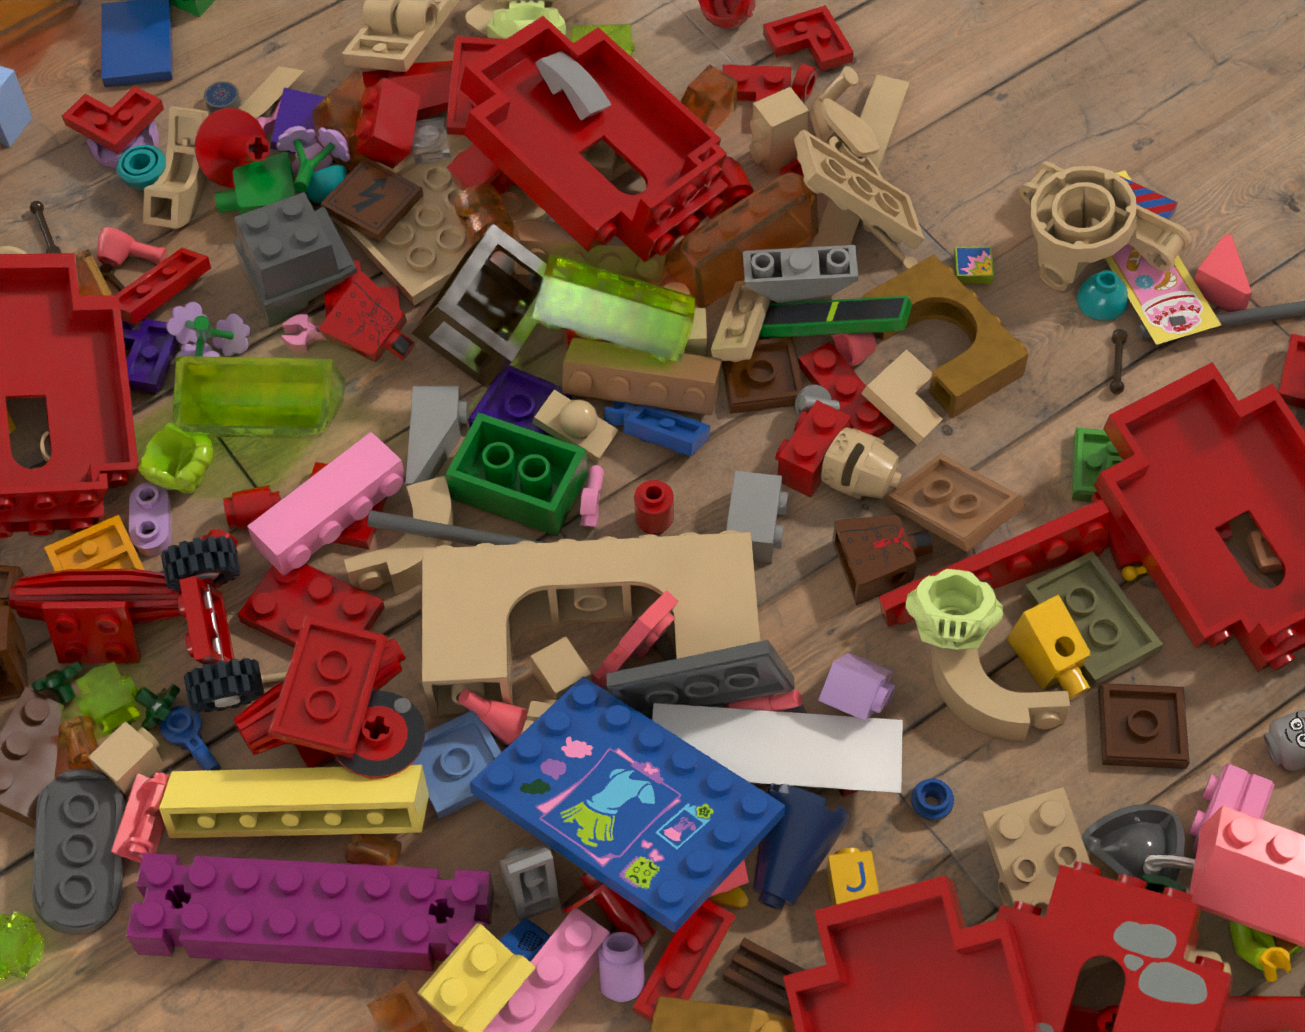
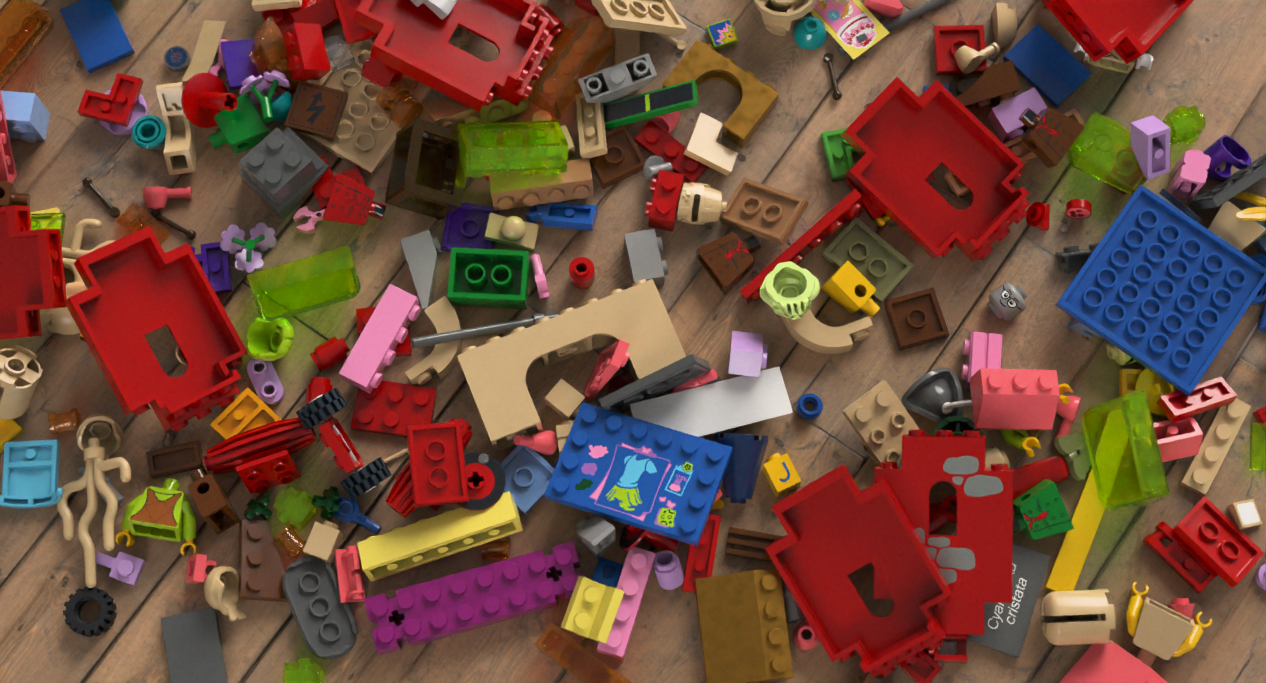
camera: 20 degrees left, 15 degrees up
(161, 284) = (200, 216): red plate -> none

